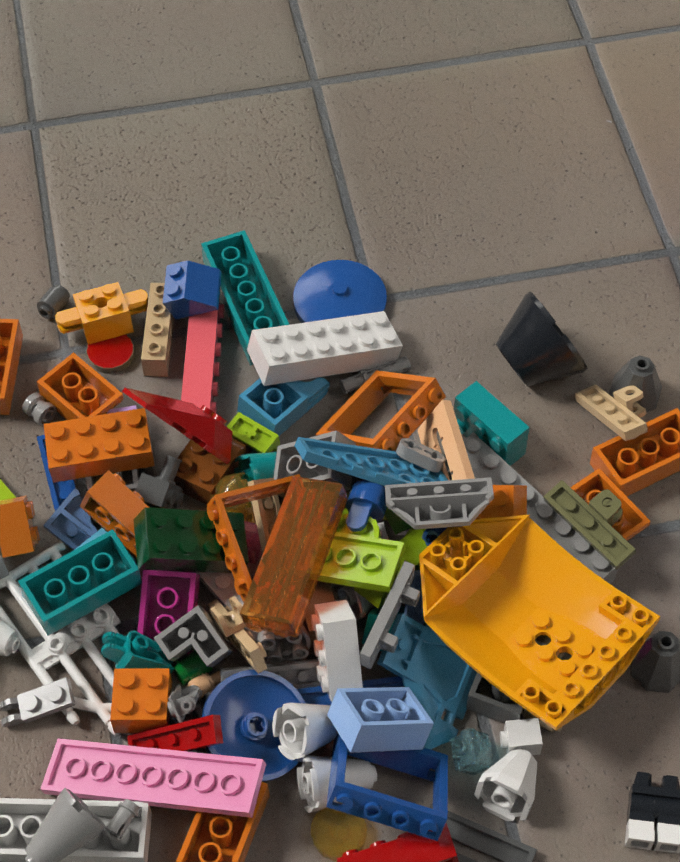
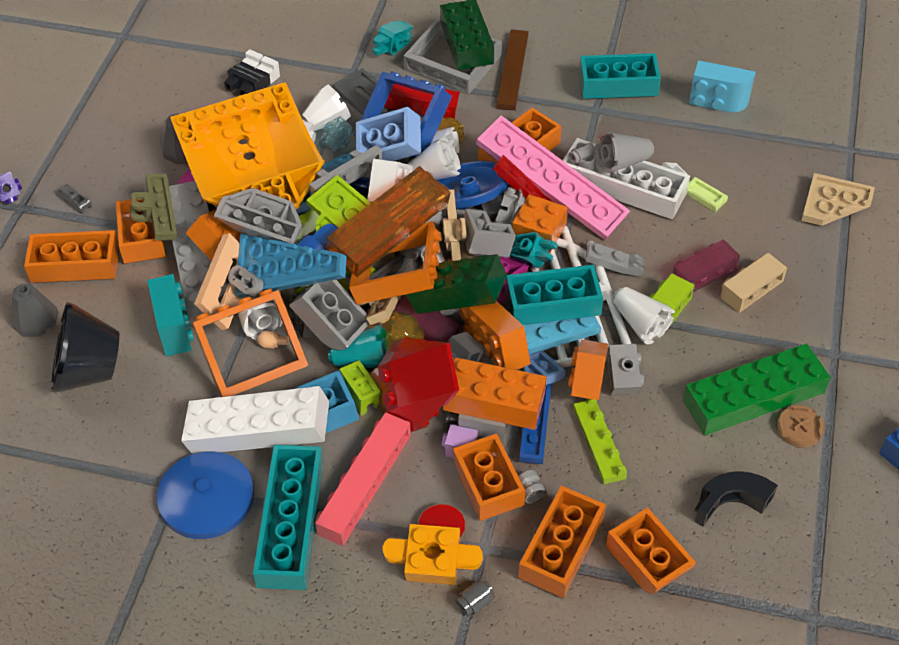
camera: 155 degrees left, 5 degrees down
(157, 334) = (387, 520): tan brick -> none
(191, 289) = (339, 522): blue slope -> none
(617, 411) = (71, 284): tan plate -> none

